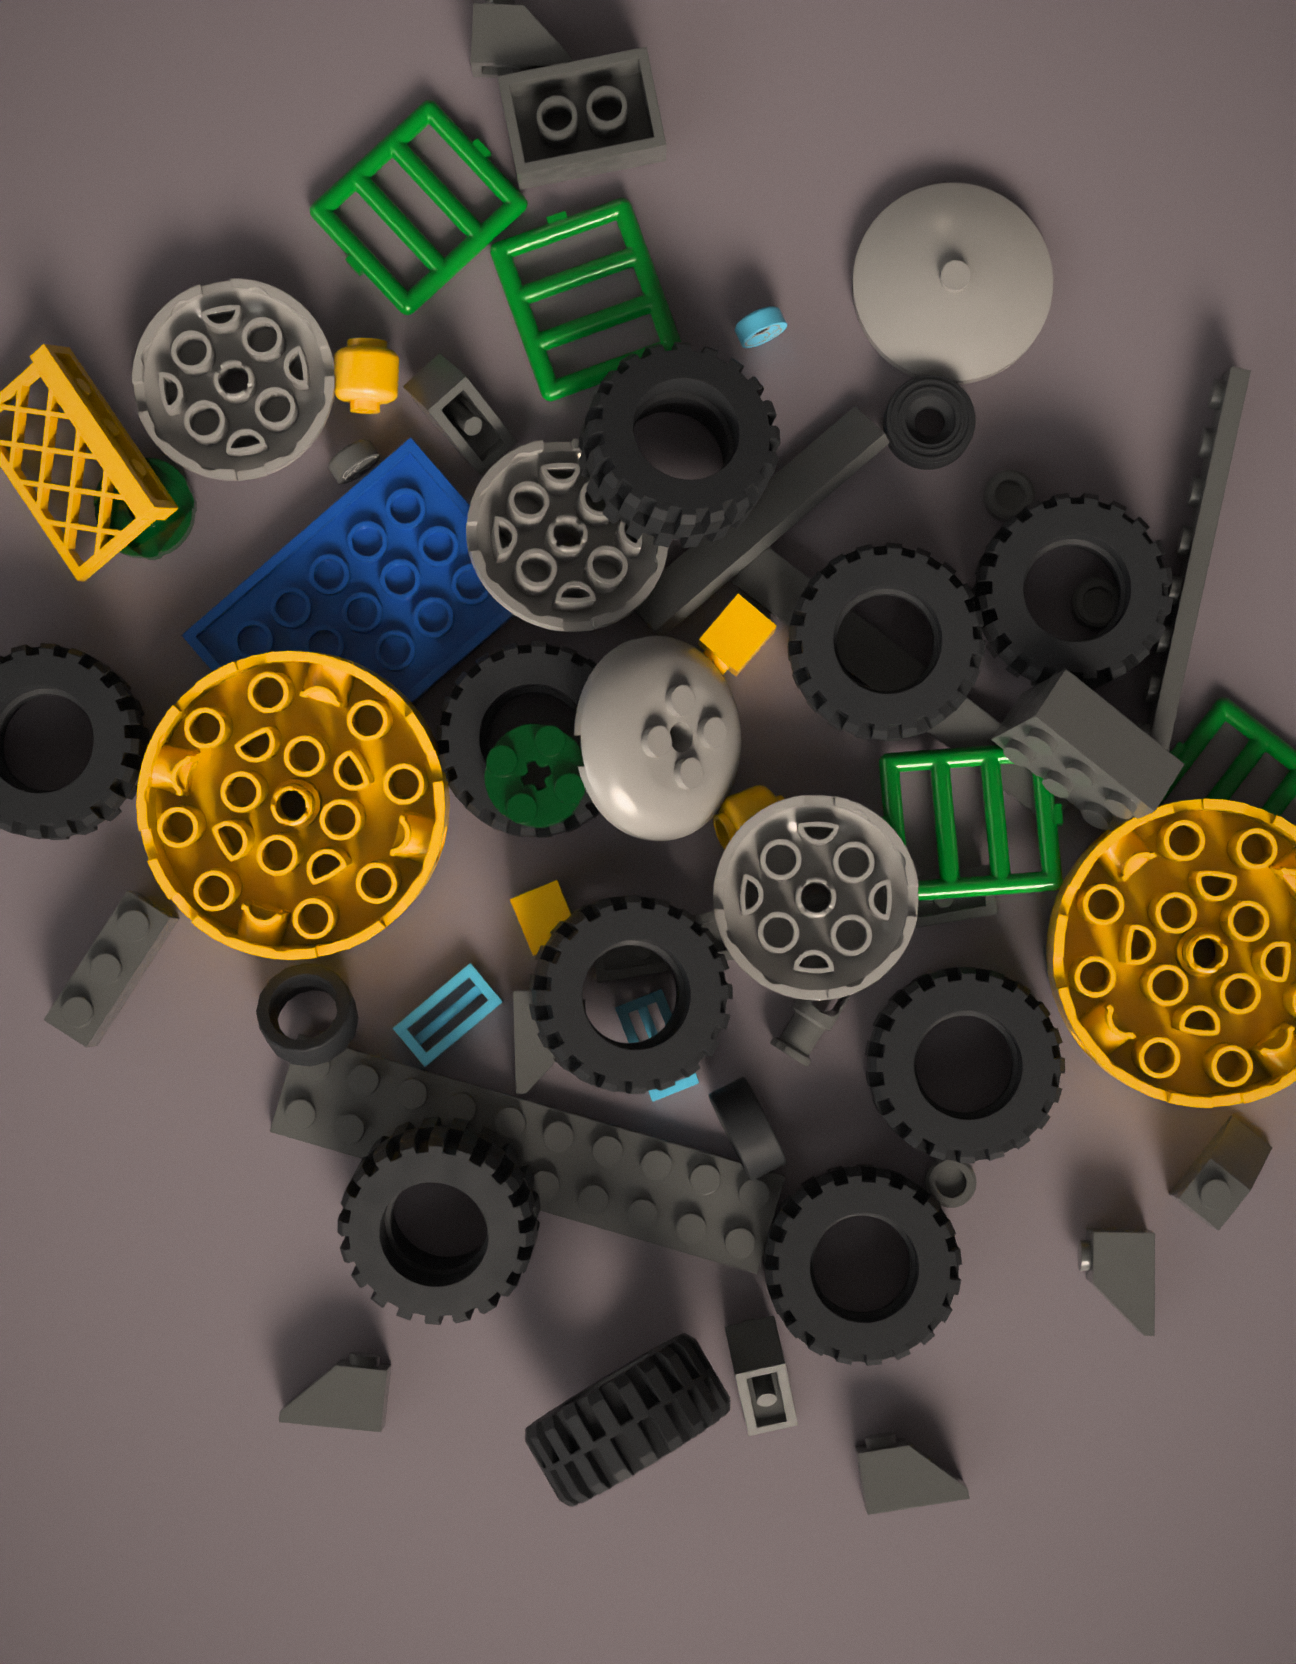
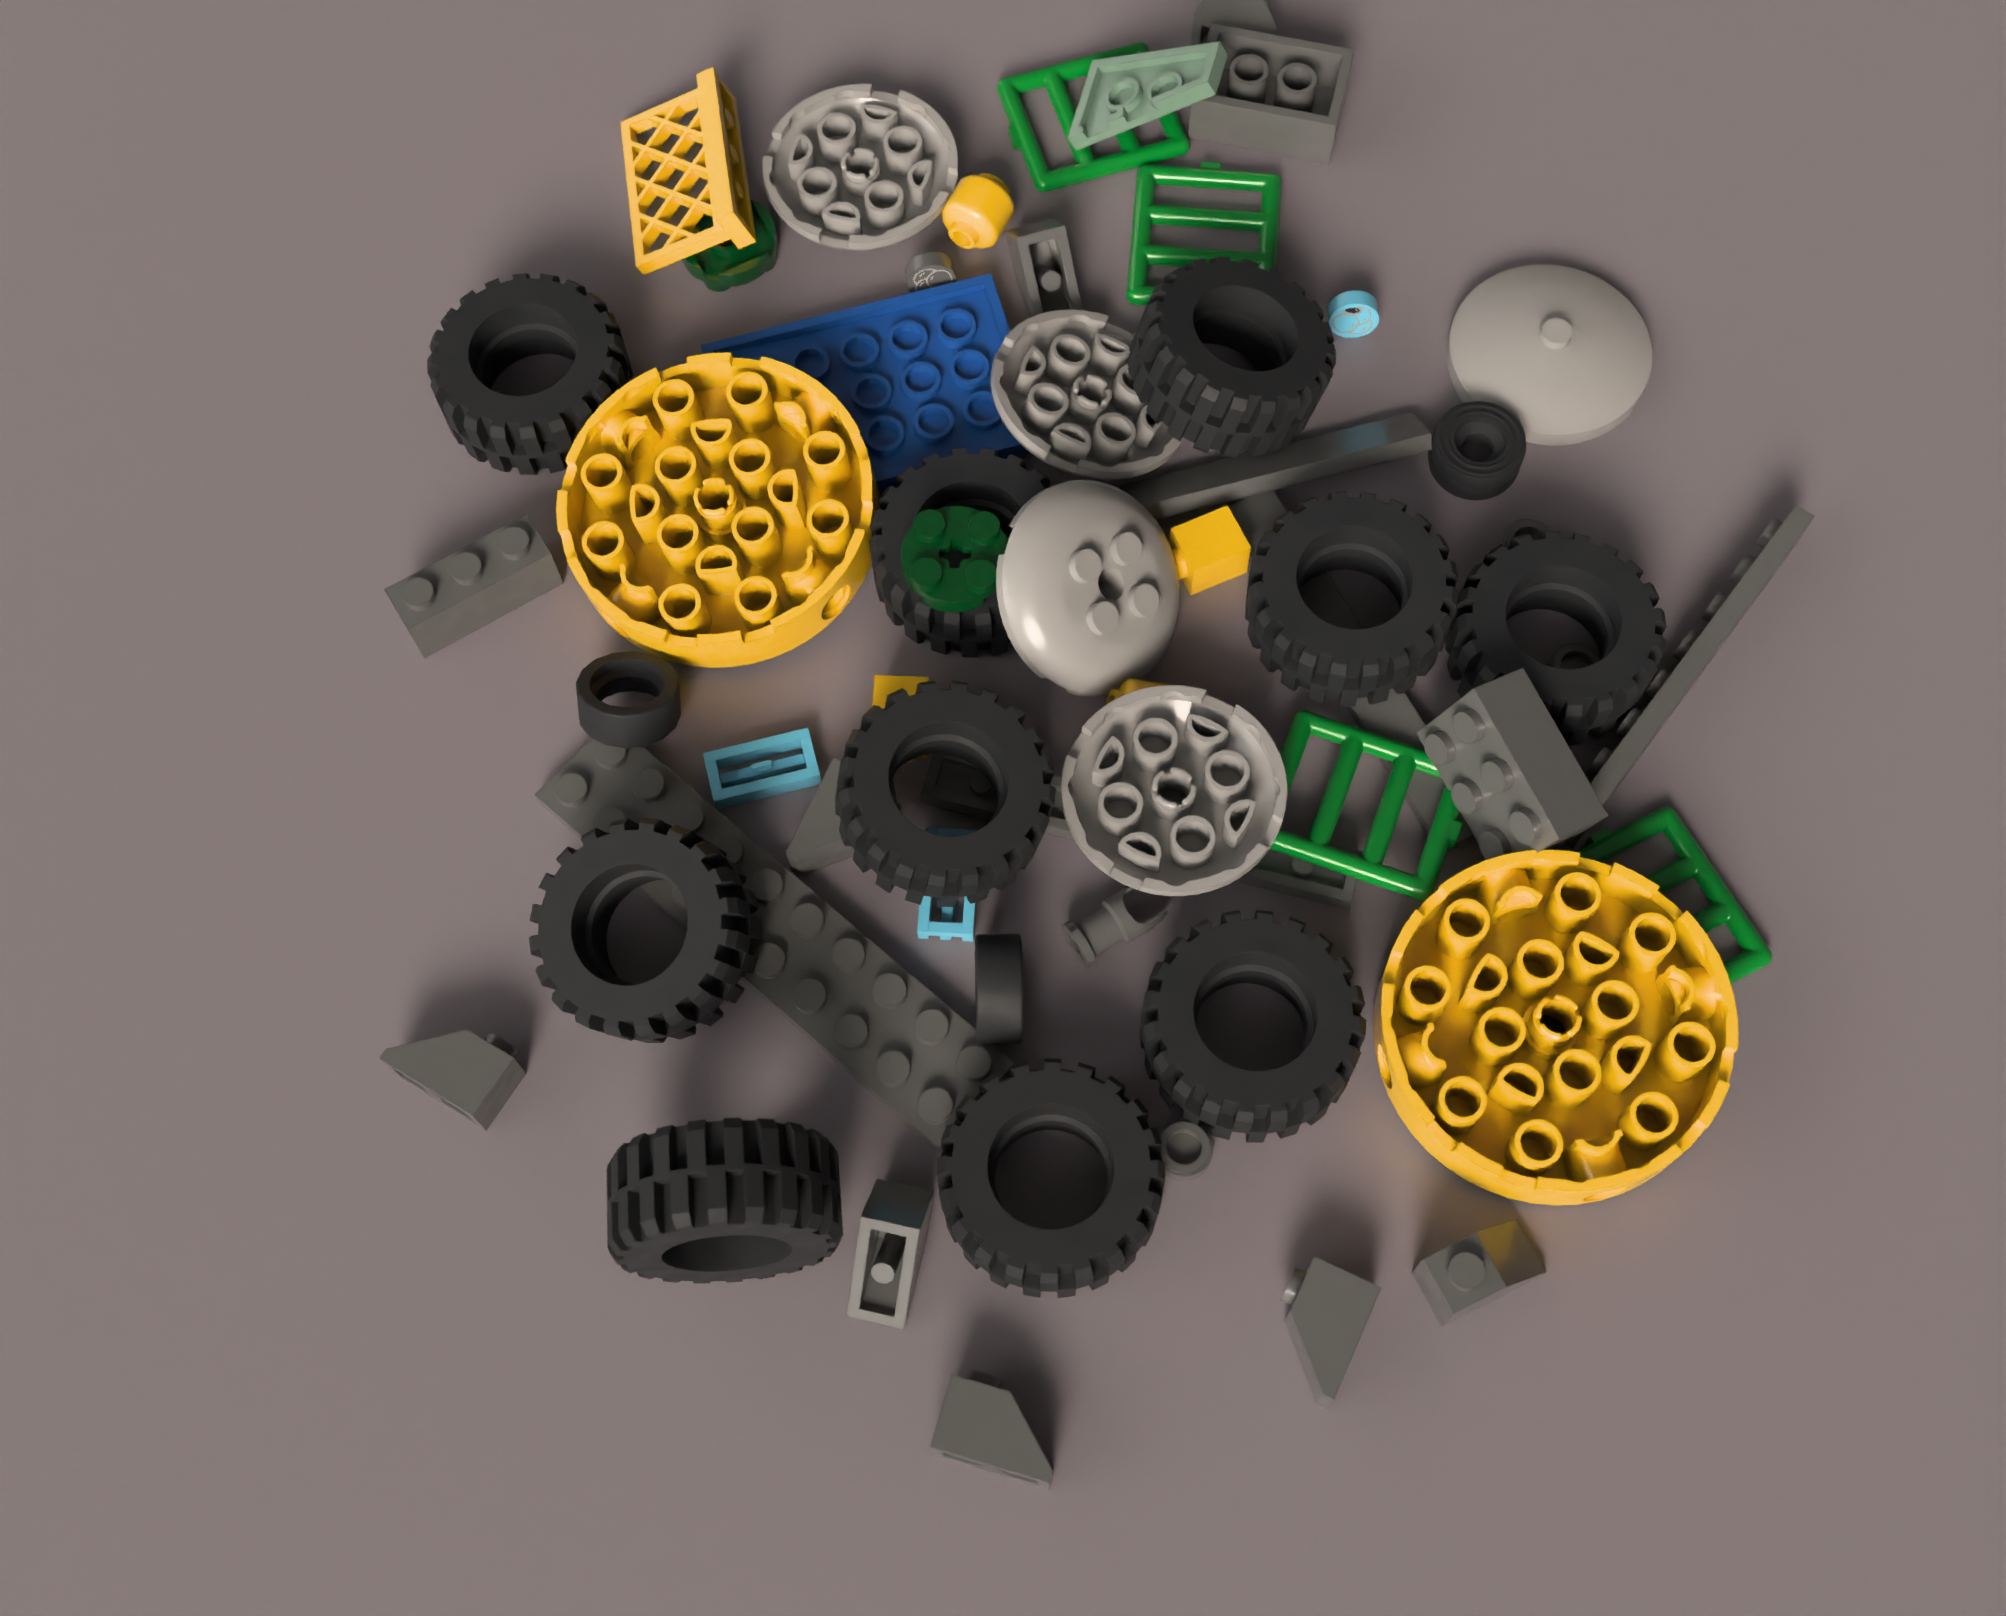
camera: 25 degrees right, 20 degrees down
(464, 181) = (1143, 87): none -> sand green wing

